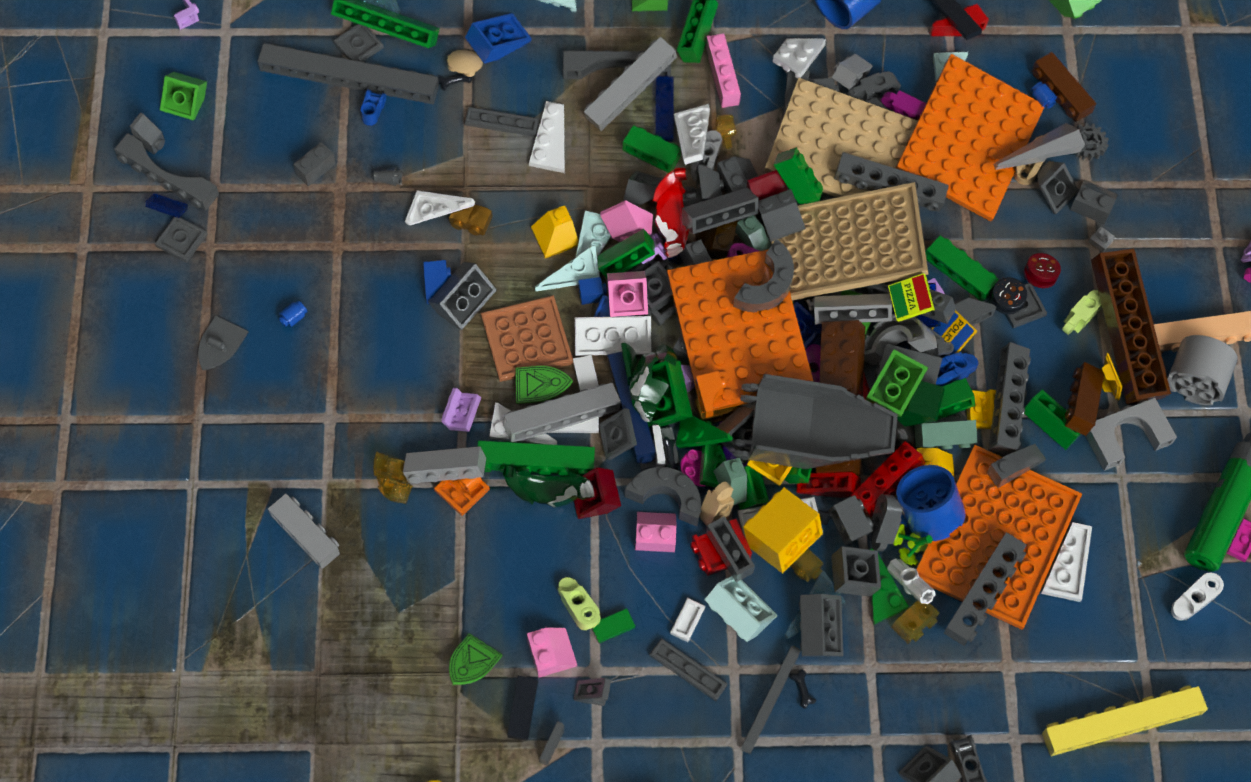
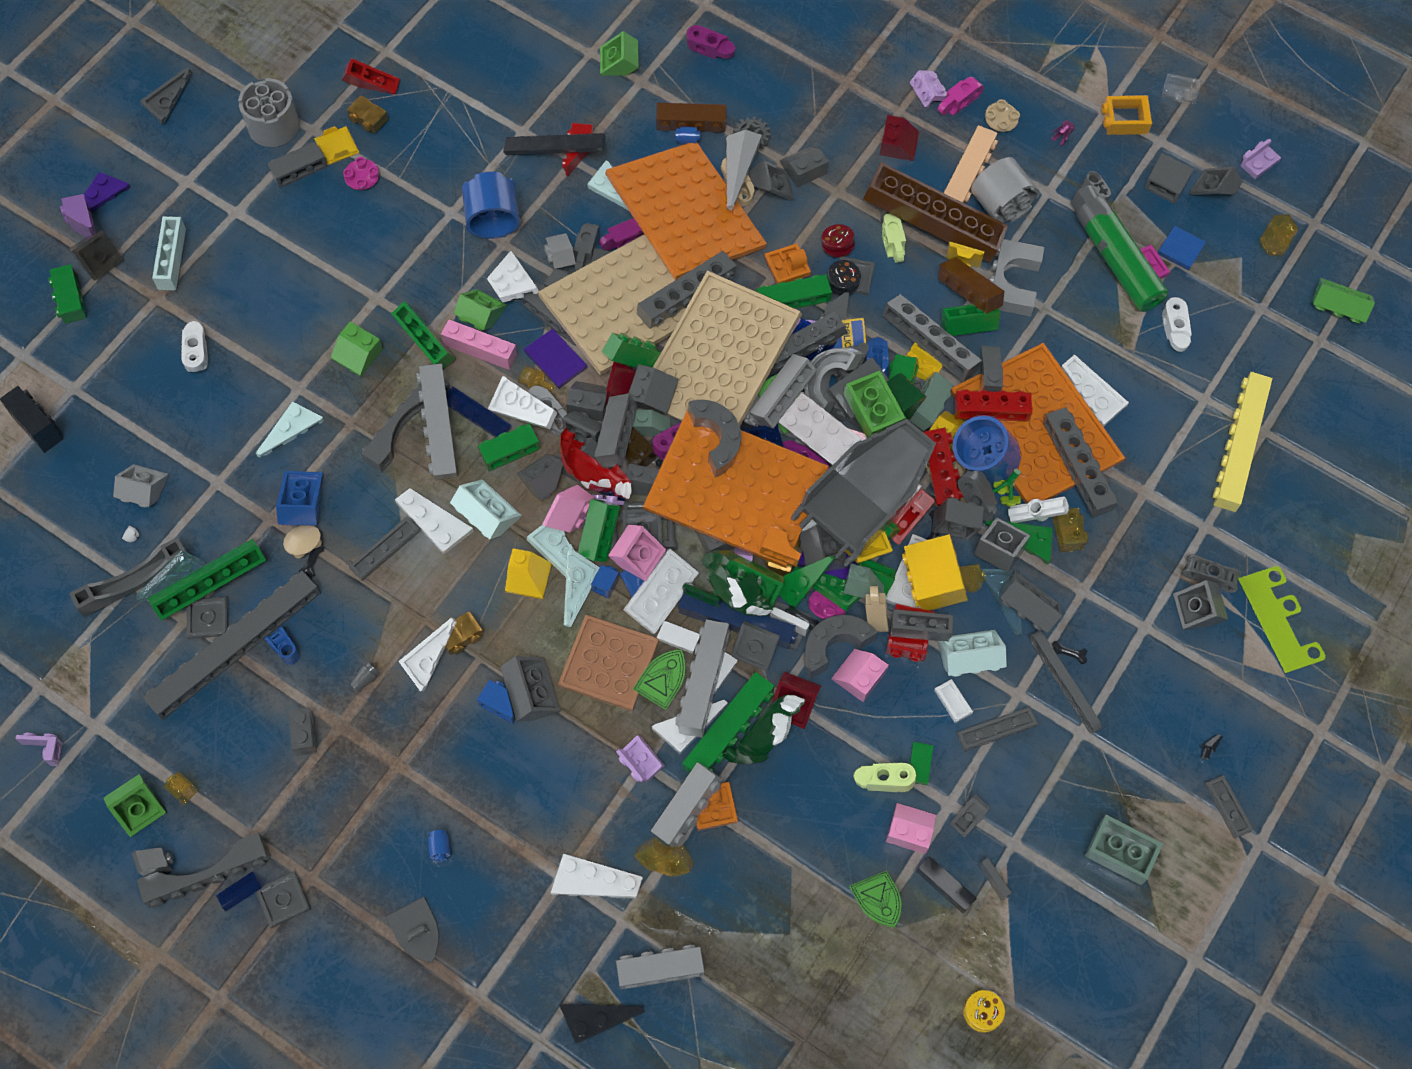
camera: 55 degrees left, 0 degrees up
(215, 115) = (180, 788): none -> clear yellow brick
(232, 509) = (591, 1020): none -> black wing
(341, 438) = (593, 880): none -> white wing
(587, 166) = (485, 508): none -> light aqua slope
(754, 50) = (479, 309): none -> bright green slope
(757, 132) = (555, 358): none -> dark purple tile
(911, 297) = (812, 340): tile -> none
(982, 486) = (999, 405): none -> red brick
(987, 246) = (788, 263): none -> orange plate
(1102, 239) = (839, 183): light grey tile -> none
(1148, 54) = (709, 42): none -> magenta piece
(1186, 257) = (899, 139): none -> dark red slope

